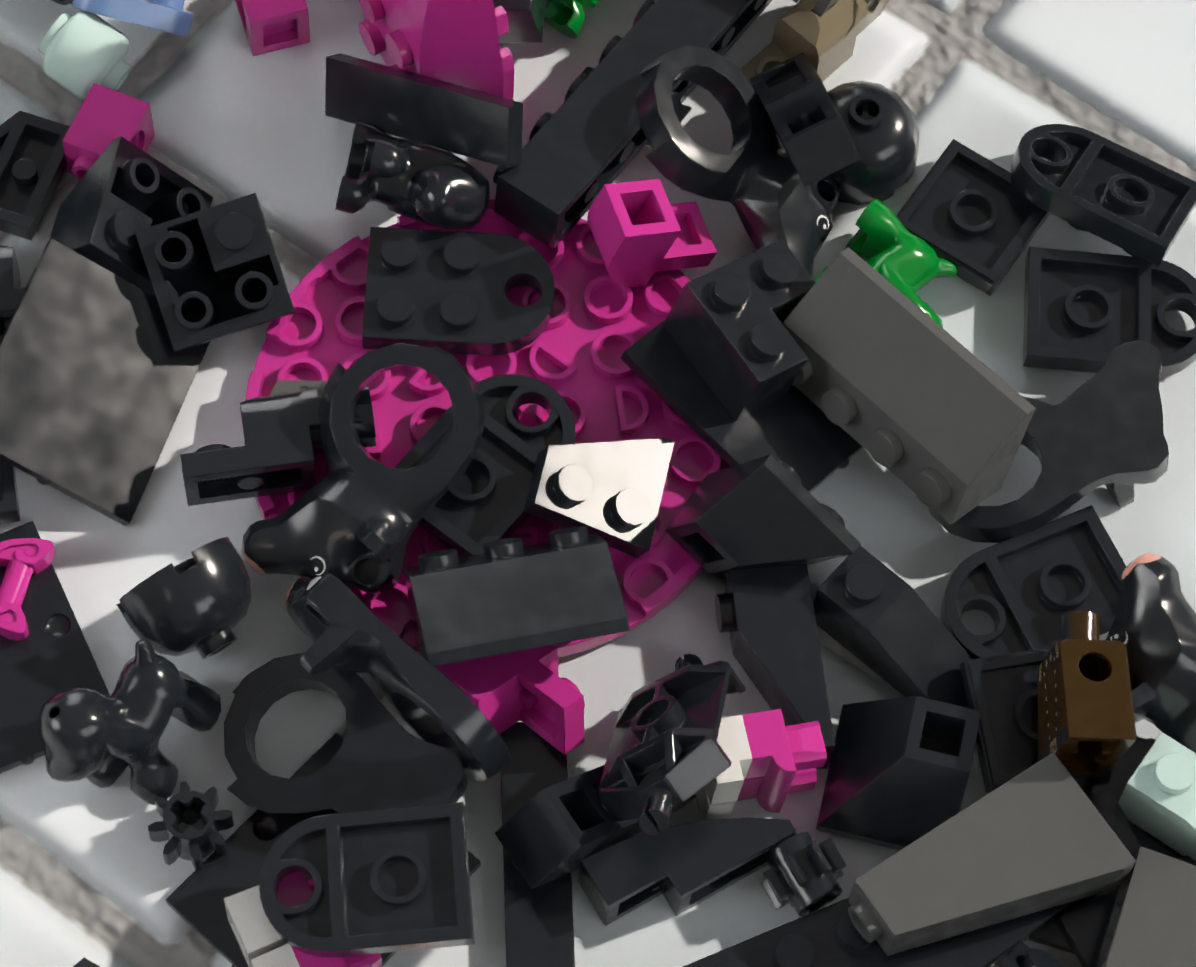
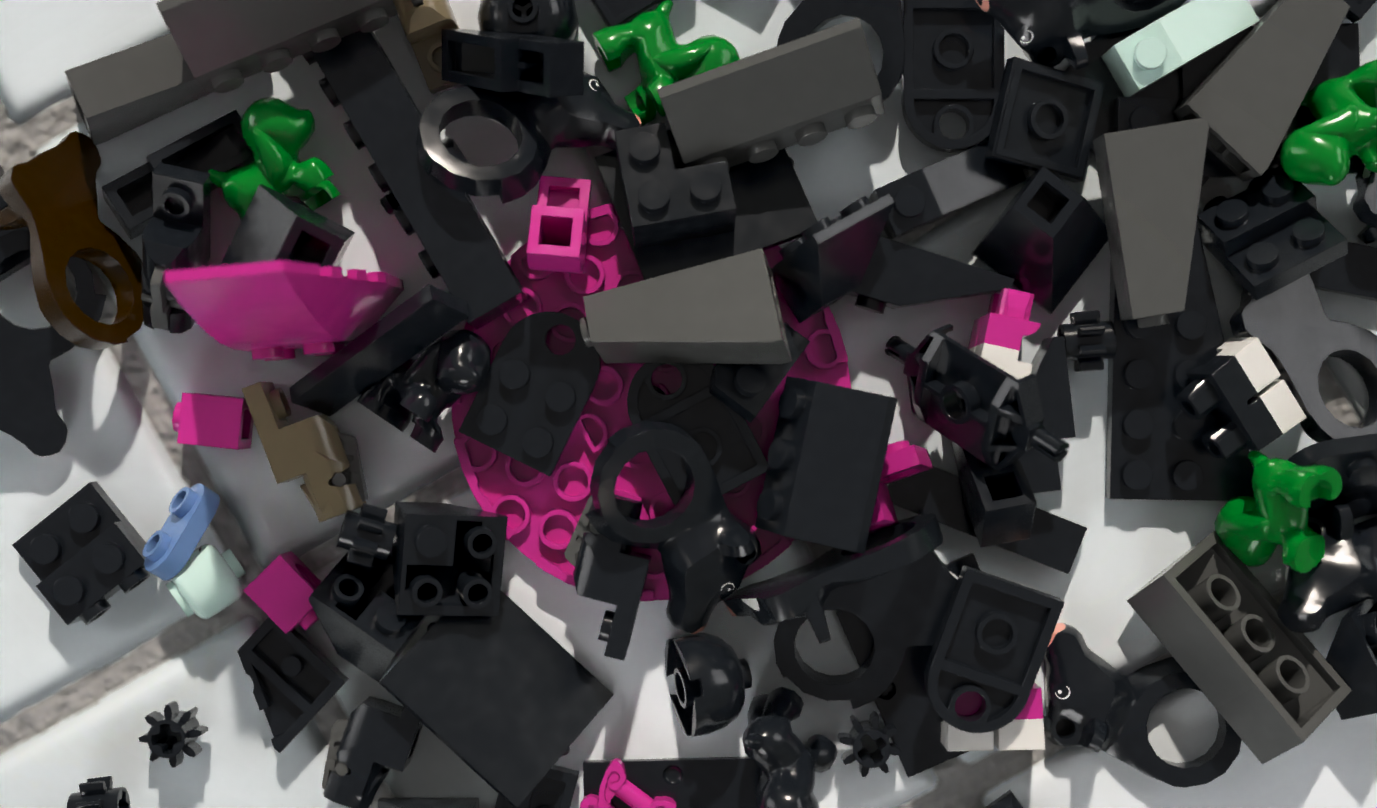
camera: 55 degrees left, 25 degrees up
(210, 175) = (366, 535): none -> black gear
(274, 101) = (308, 450): none -> dark tan plate
(618, 398) = (692, 316): none -> dark grey slope
(1085, 698) = (1072, 90): dark brown torso -> none

